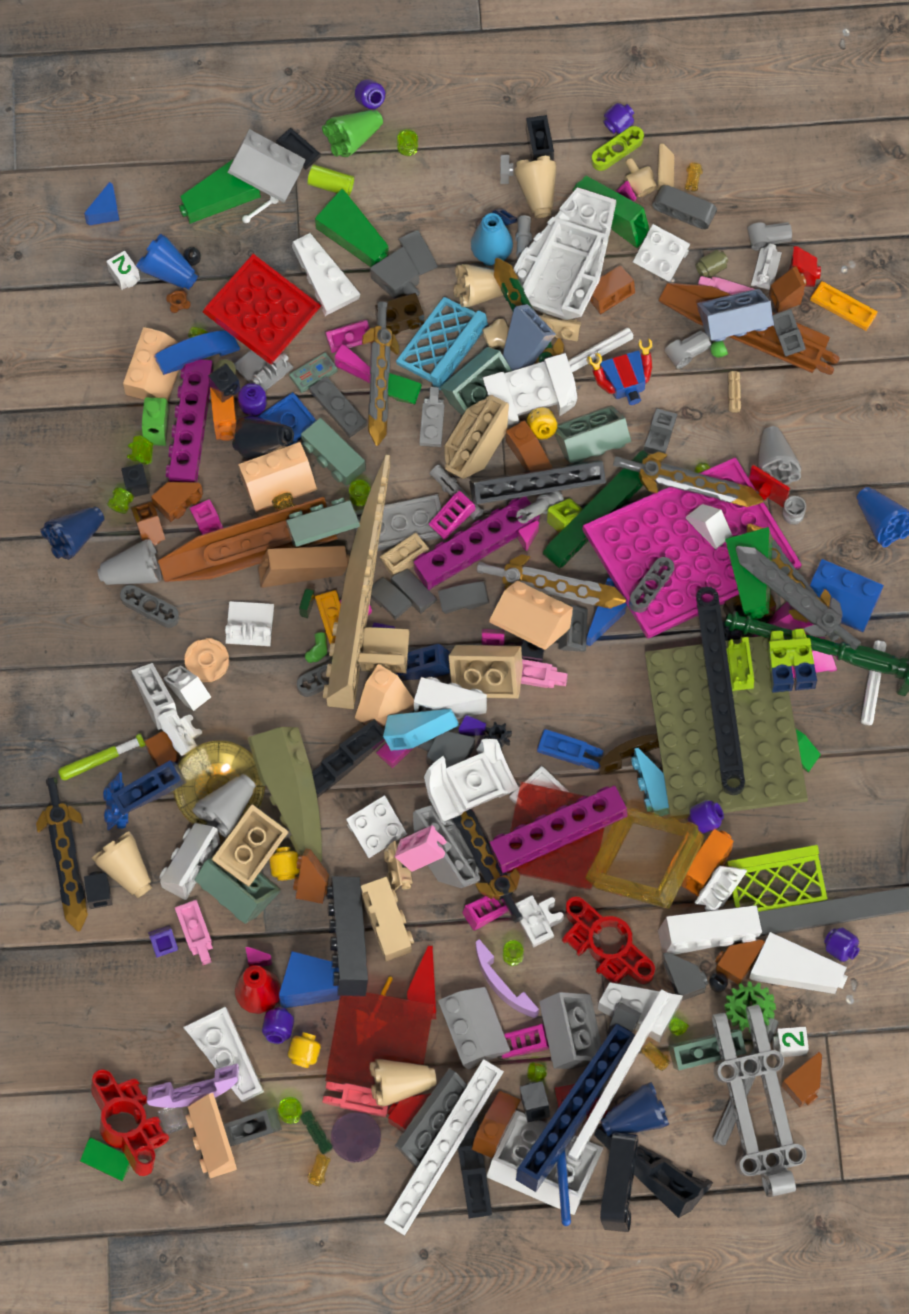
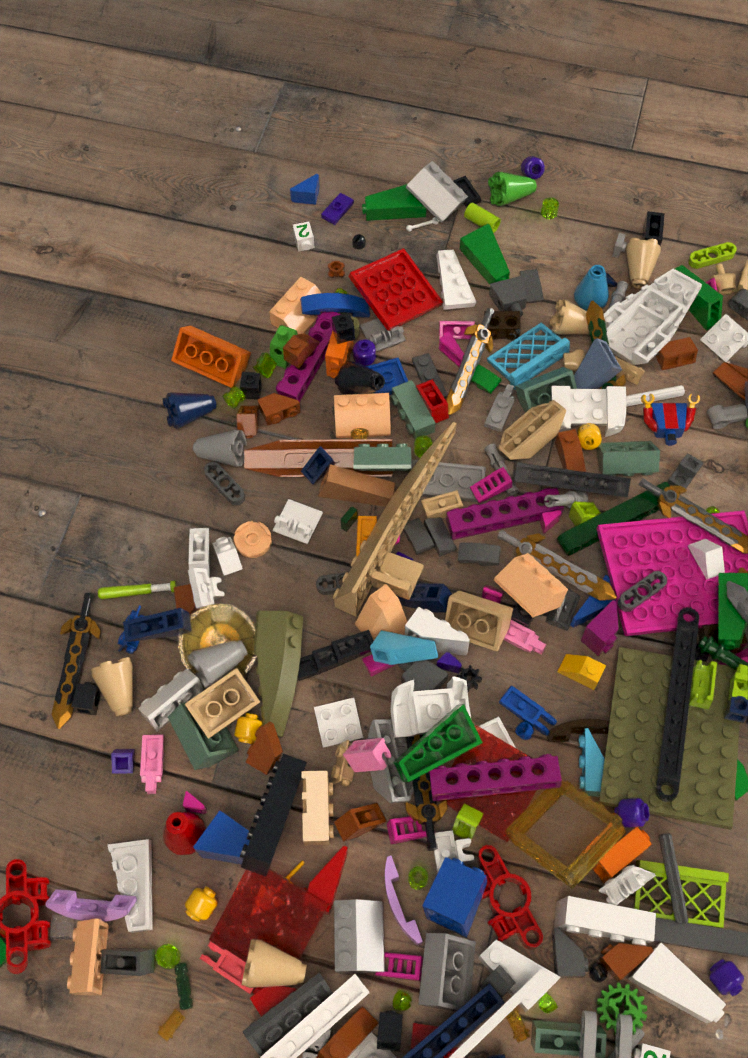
camera: 20 degrees right, 5 degrees down
(72, 458) = (210, 356): none -> orange slope
(149, 219) = (337, 208): none -> dark purple plate
(167, 264) = (336, 239): blue cone -> none
(178, 420) = (299, 349): none -> dark orange slope
(206, 517) = (295, 428): dark pink slope -> none
(251, 554) = (317, 465): none -> dark blue slope
(277, 1025) = (187, 872): dark purple head -> none
(313, 372) = (419, 347): sand green tile -> none
(319, 650) = (344, 560): bright green arm -> none
(353, 434) = (433, 400): none -> red slope
(355, 1137) = (215, 1005): clear purple piece -> none
(434, 918) = (359, 821): none -> dark orange slope
(493, 811) = (443, 742): none -> green wedge
(544, 882) = (467, 822): none -> lime slope
(556, 956) = (455, 896): none -> blue slope
(573, 767) = (524, 726): none -> blue hinge
(613, 688) = (582, 670): none -> yellow slope
(618, 118) = (720, 233): dark purple head -> none
(621, 642) = (602, 630): none -> magenta slope
(764, 867) = (673, 878): none -> dark grey axle

